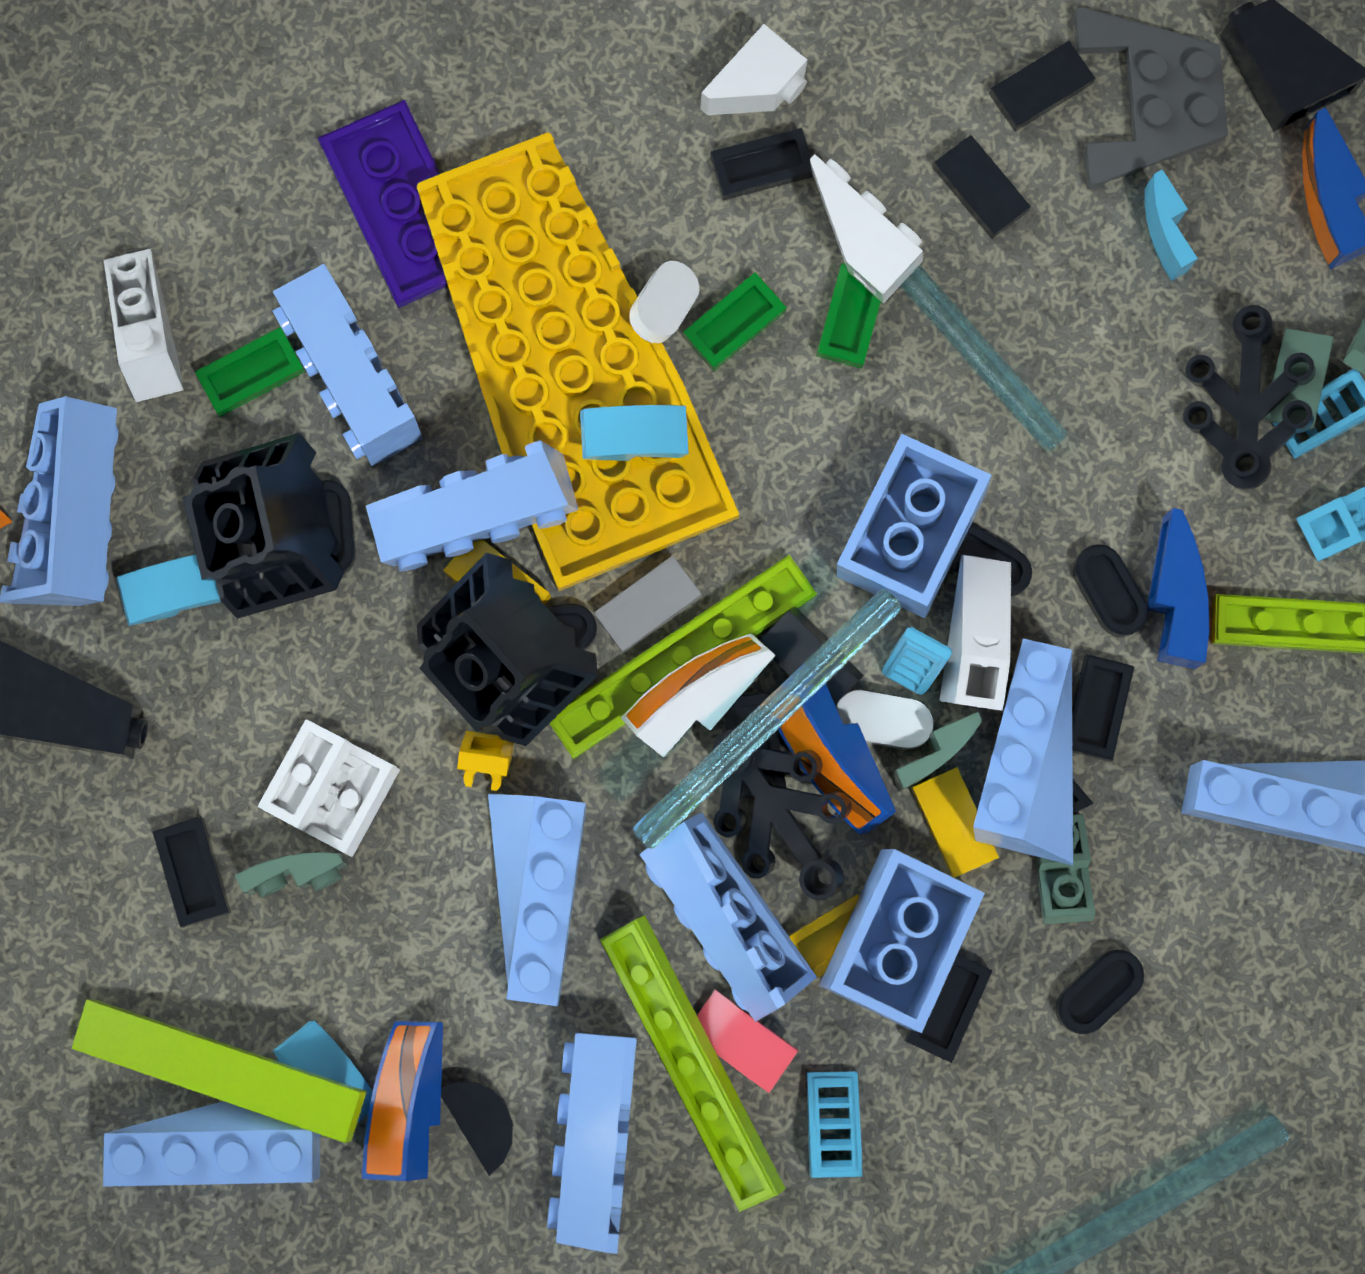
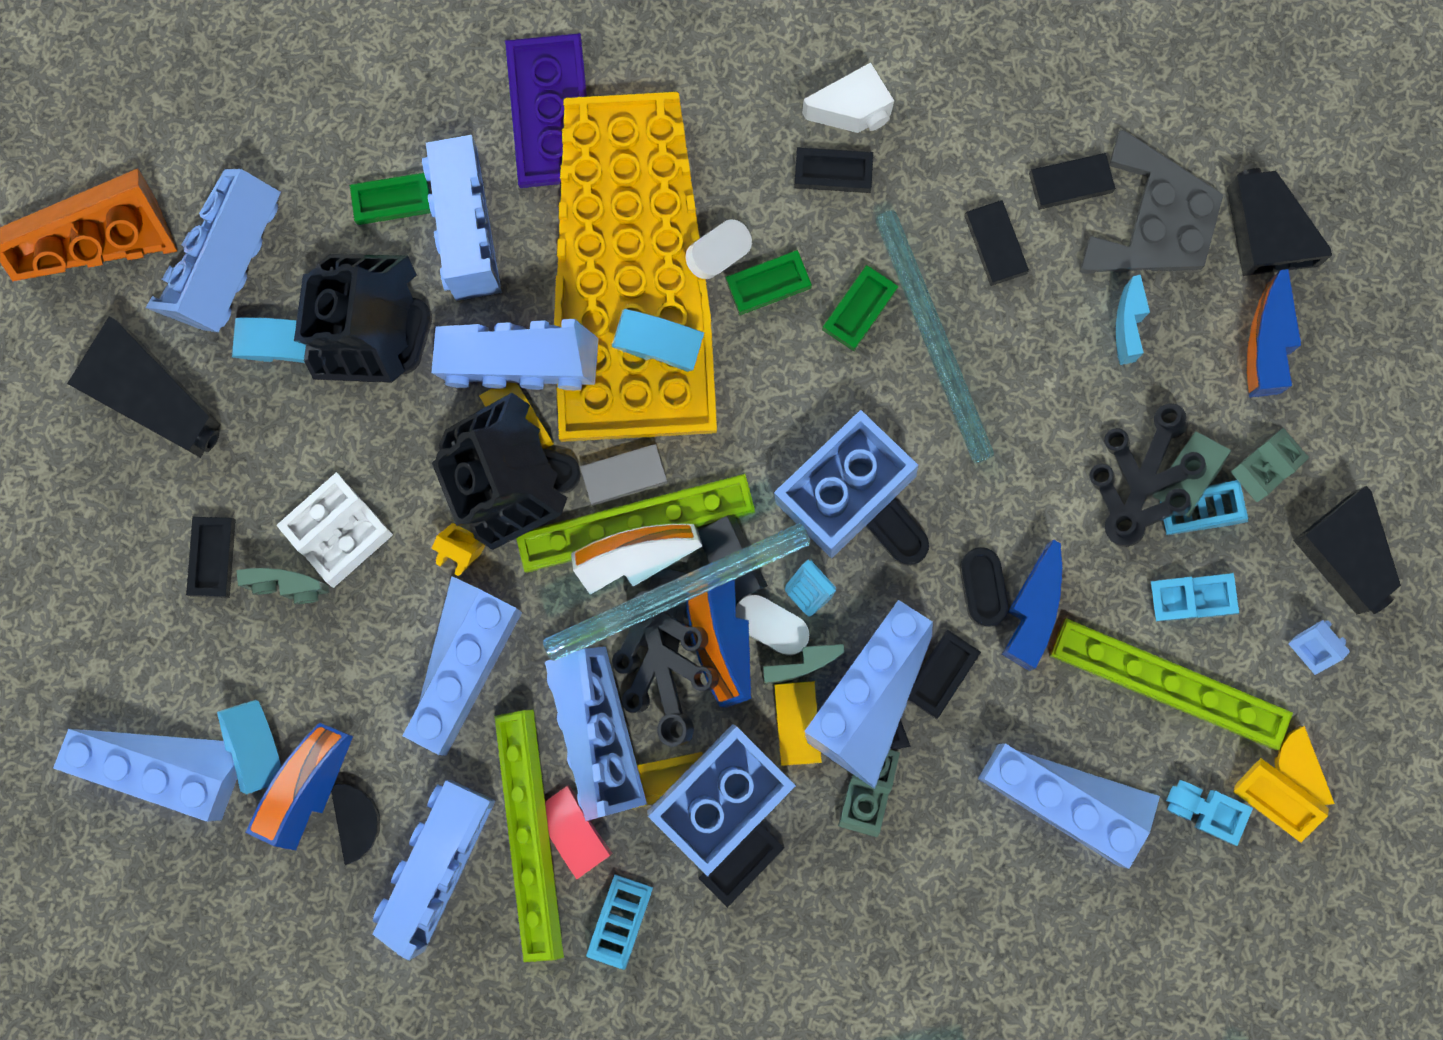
camera: 30 degrees right, 0 degrees up
(142, 326) = (322, 138): white slope -> none
(219, 1070) = (172, 713): lime tile -> none
(870, 244) = (889, 255): white slope -> none
(979, 635) = (867, 585): white slope -> none
(1099, 991) = (863, 894): black tile -> none

